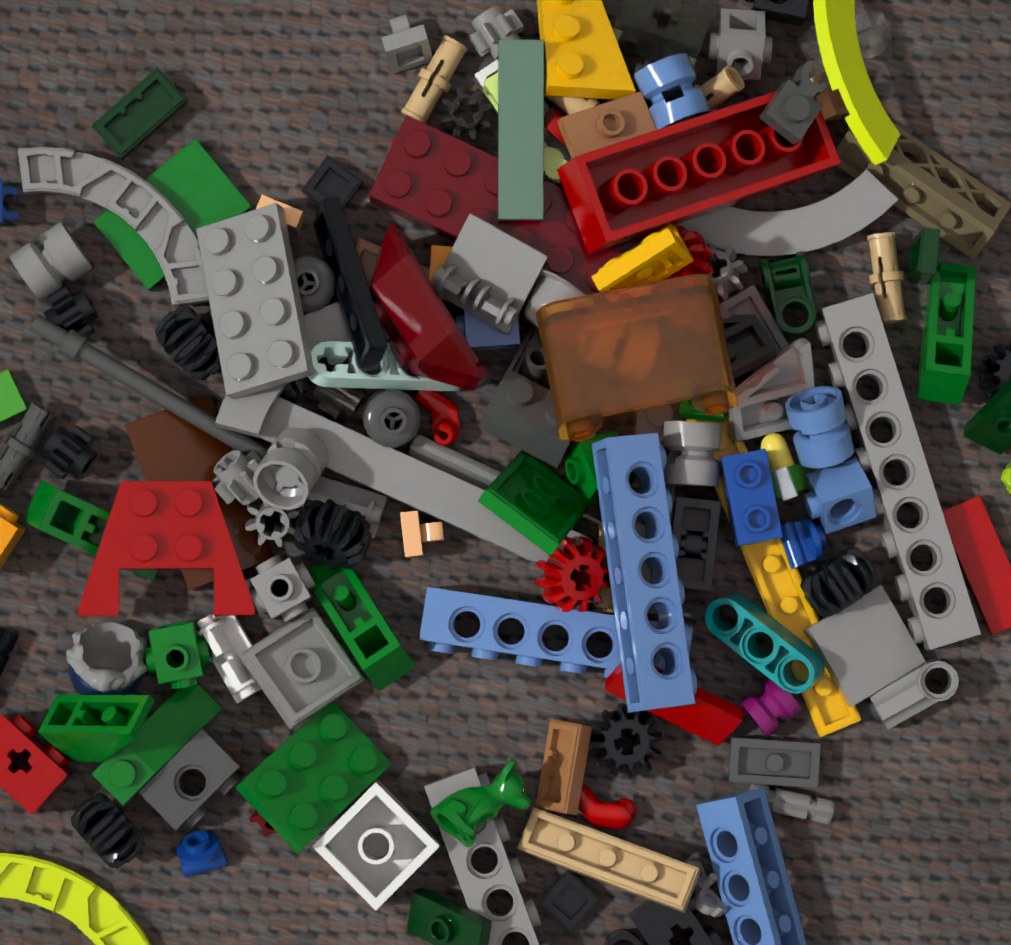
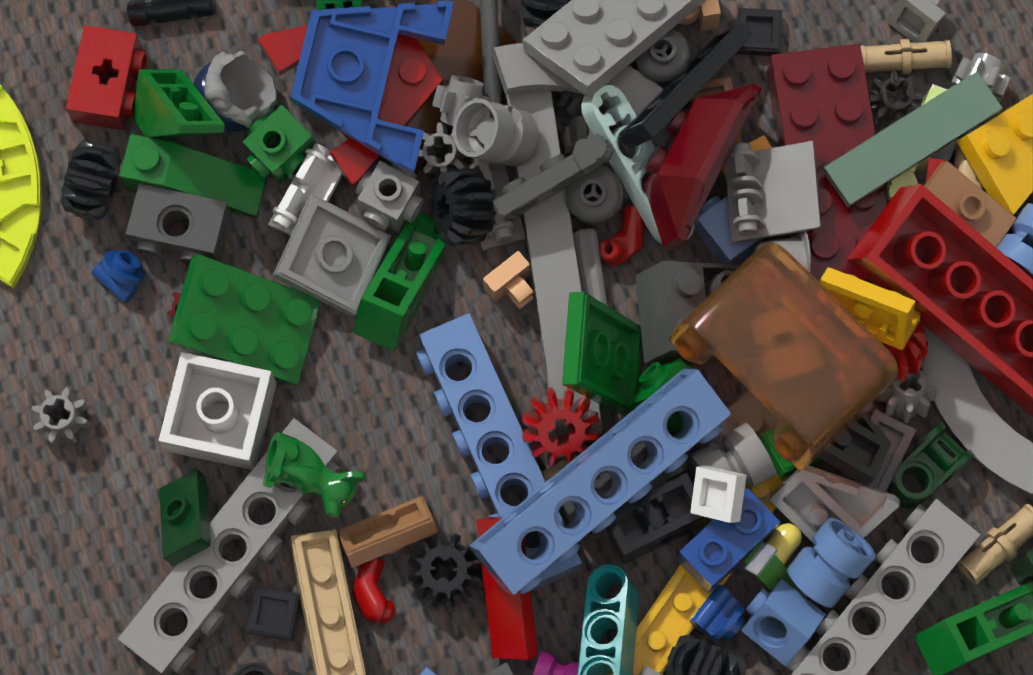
camera: 55 degrees right, 10 degrees down
(157, 557) = (348, 66): none -> blue wing
(361, 442) = (555, 176): none -> dark grey hinge
(715, 485) = (718, 494): none -> white plate

